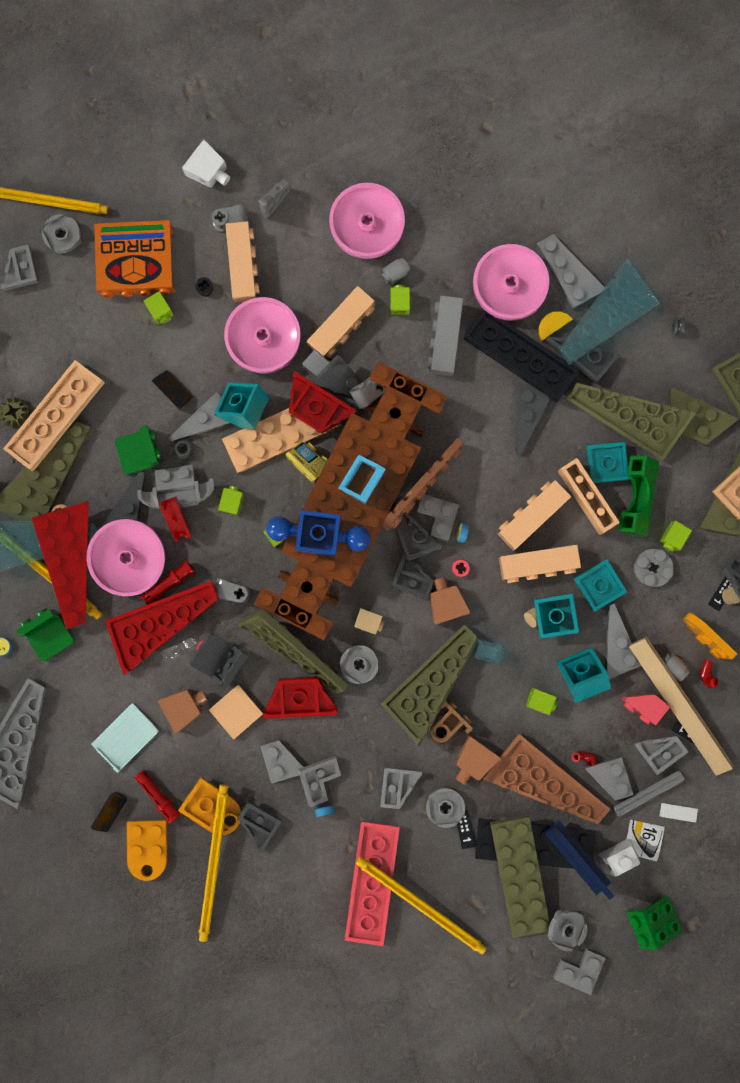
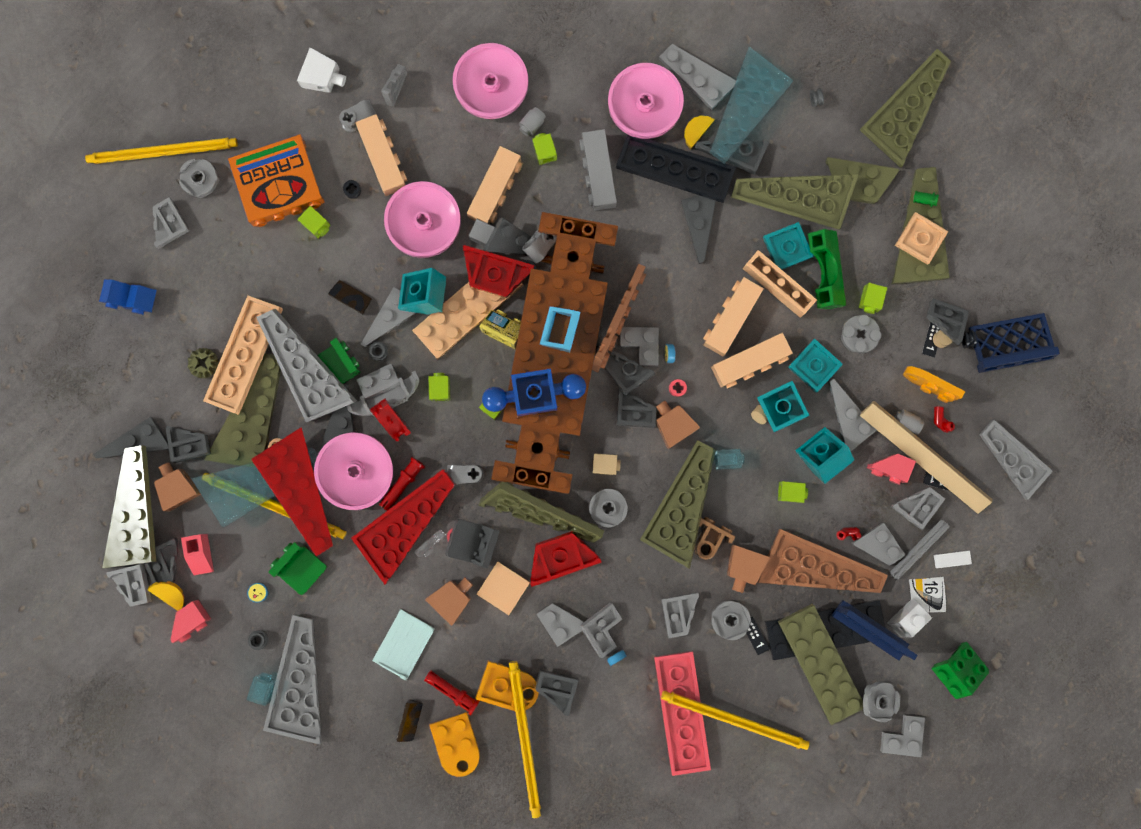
camera: 20 degrees left, 0 degrees up
(108, 454) = (309, 379): none -> light grey wing

